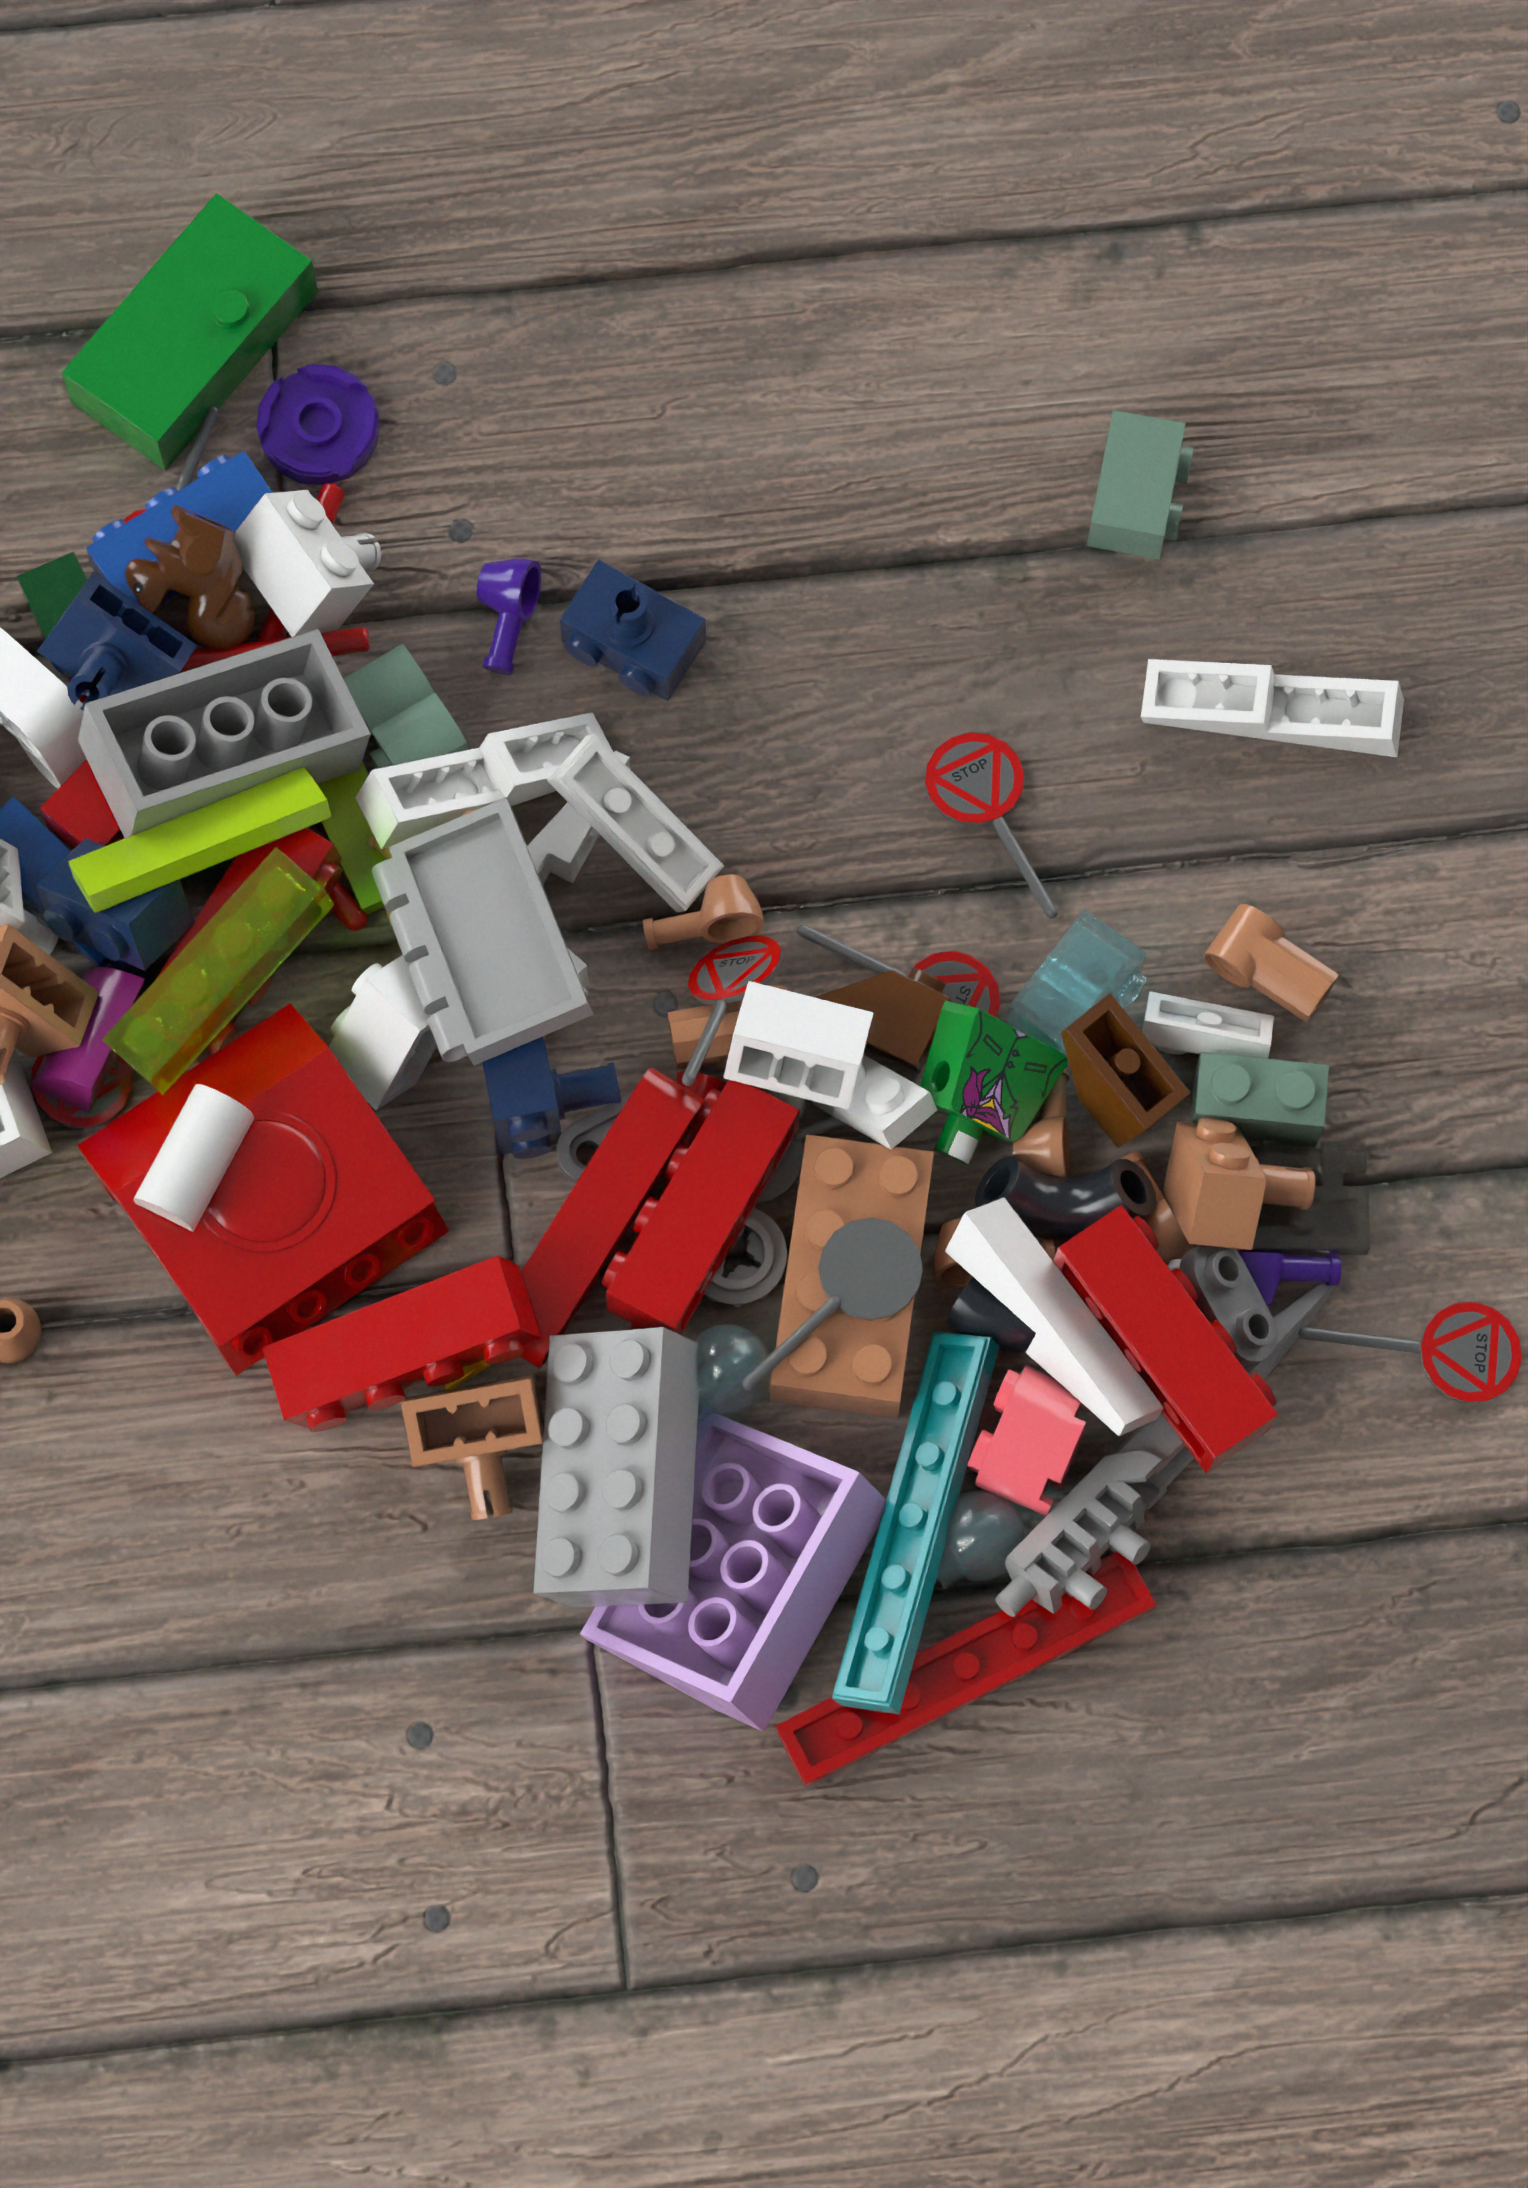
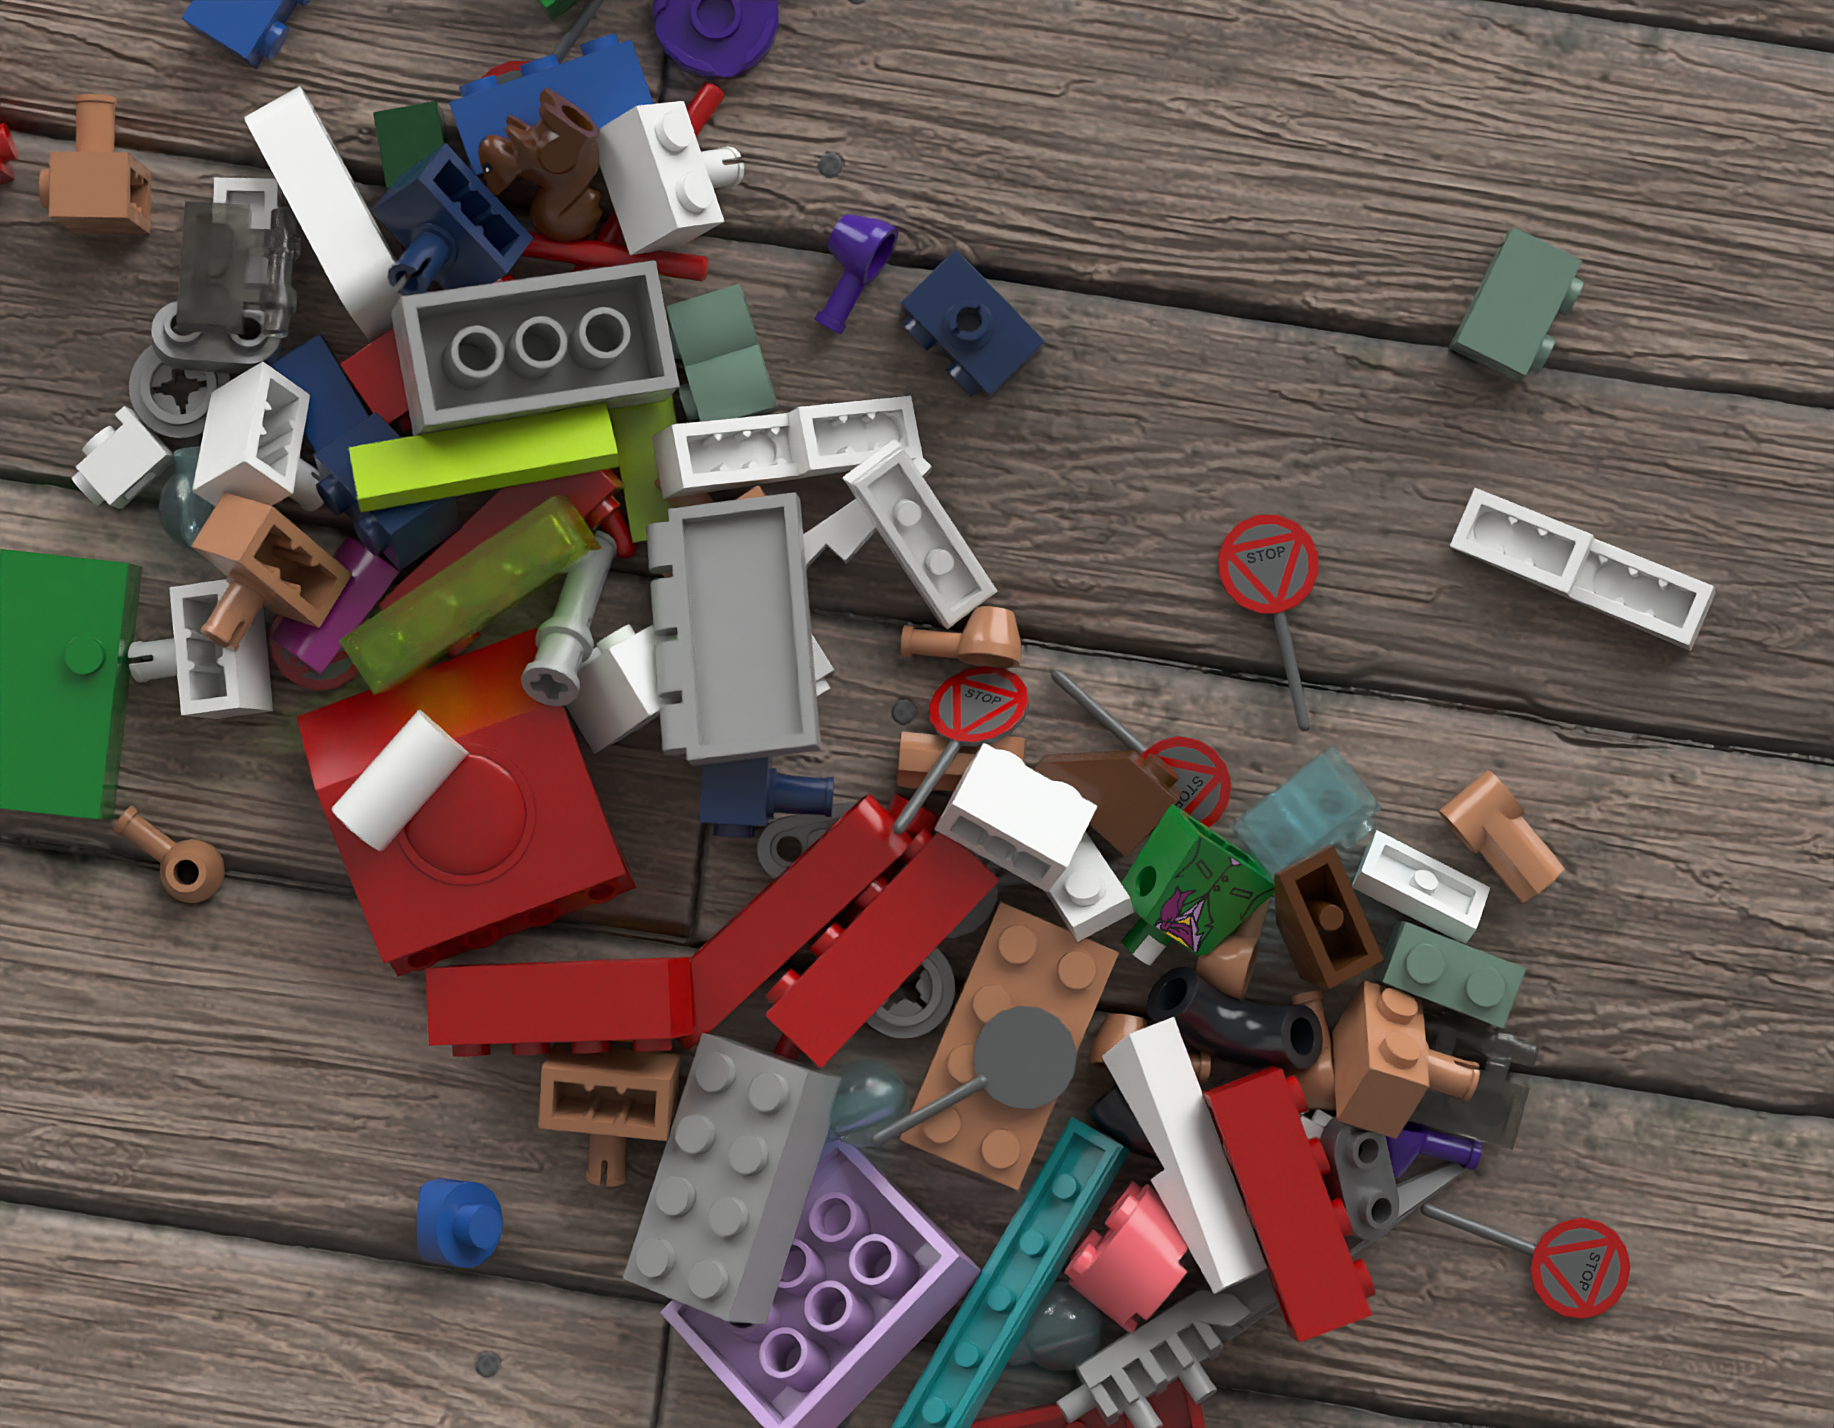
camera: 15 degrees right, 15 degrees up
(321, 993) = (566, 637): none -> light grey pin
(356, 1592) = (457, 1222): none -> blue piece

